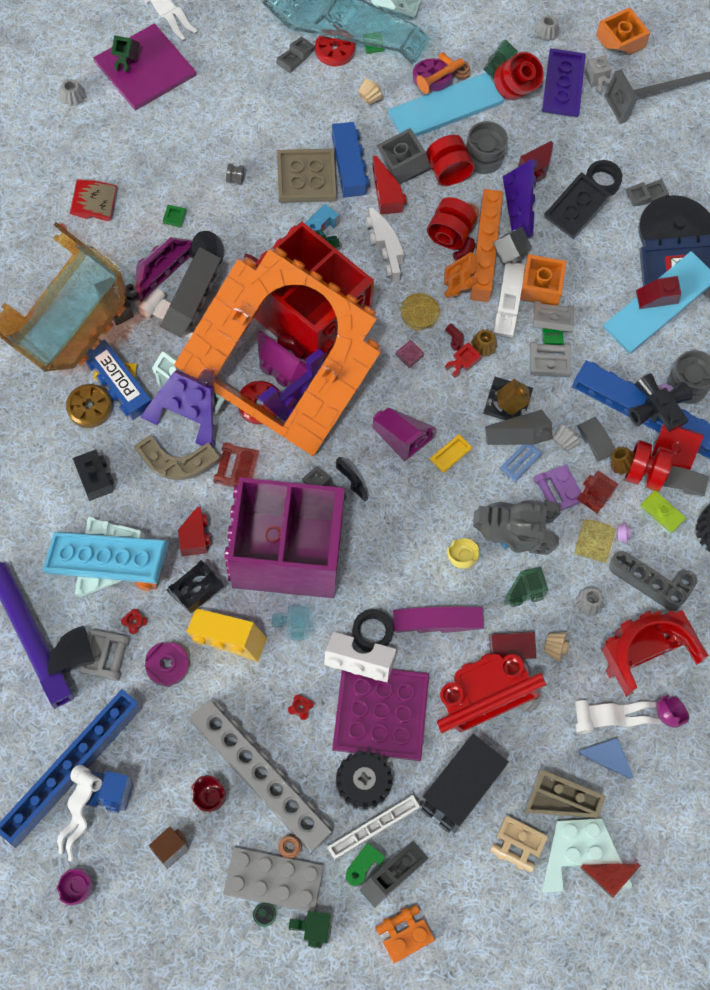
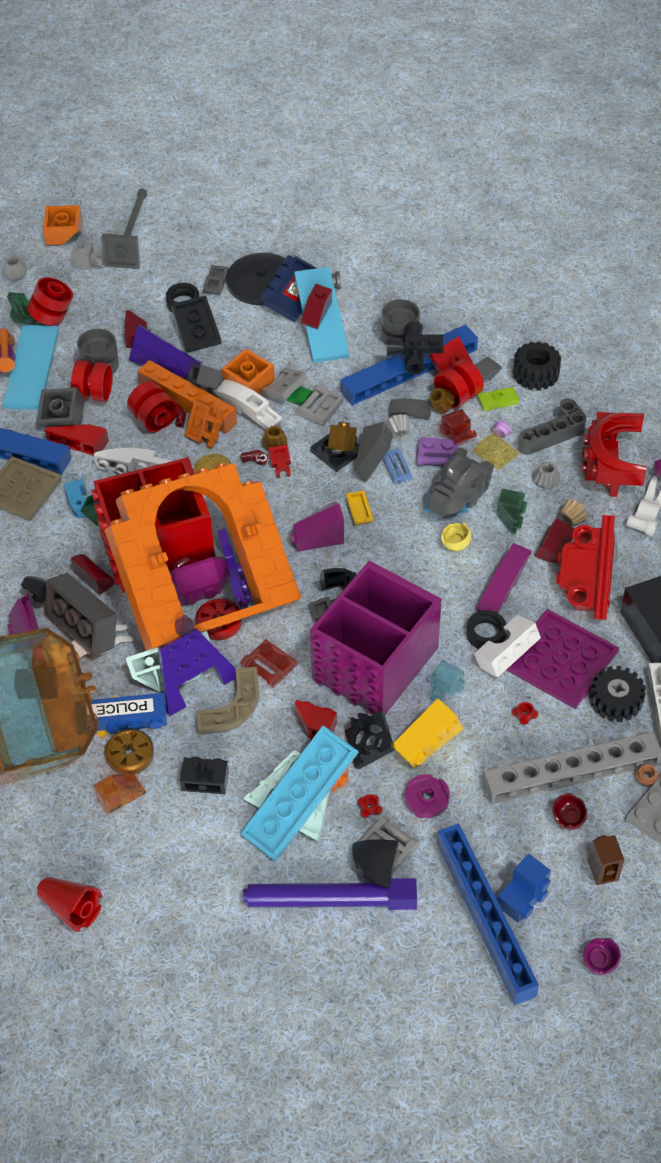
camera: 55 degrees left, 15 degrees down
(42, 417) = (118, 791): none -> clear orange slope
(86, 783) = (531, 915): white flag -> none
(564, 82) = (85, 286): dark purple plate -> none

